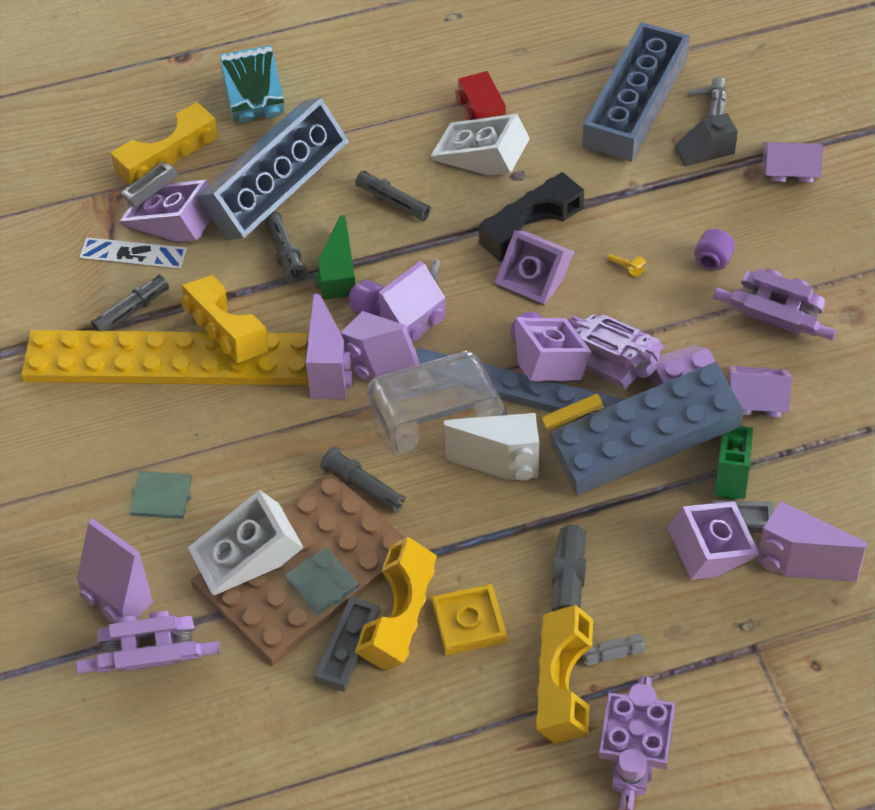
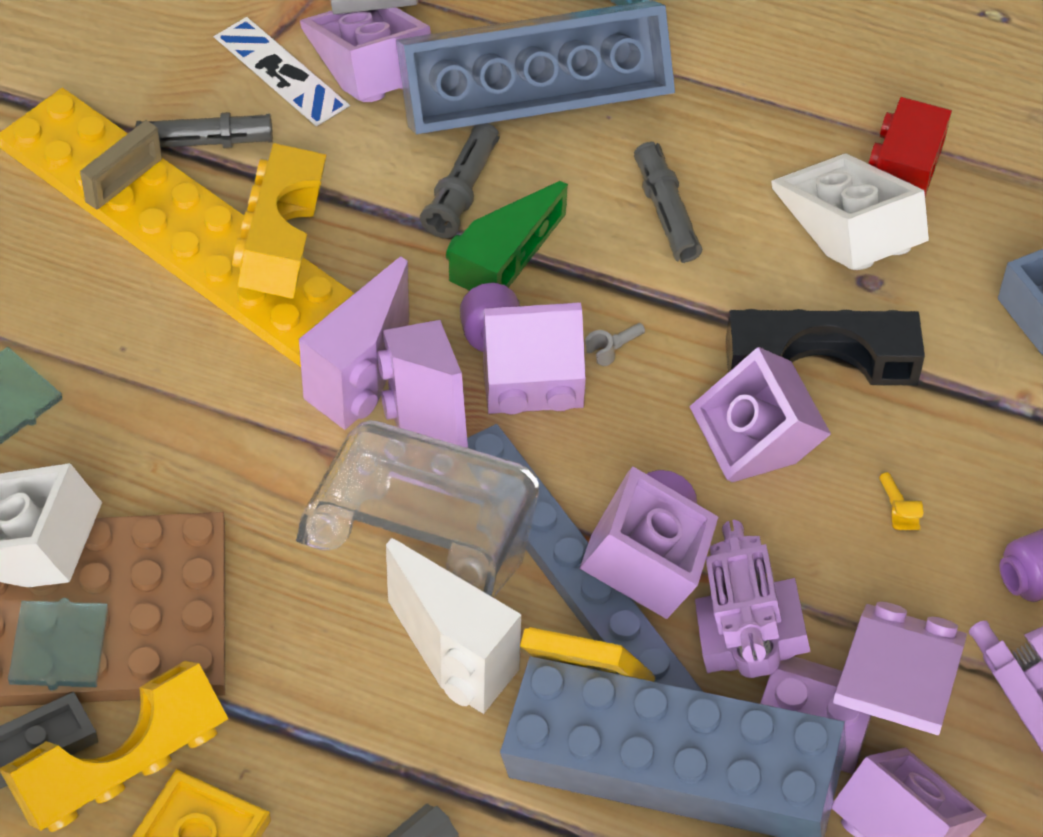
camera: 35 degrees right, 0 degrees up
(115, 344) = (121, 165): none -> dark tan tile
(352, 473) = (245, 531): dark grey pin -> none
(706, 327) = (901, 667): none -> lavender slope

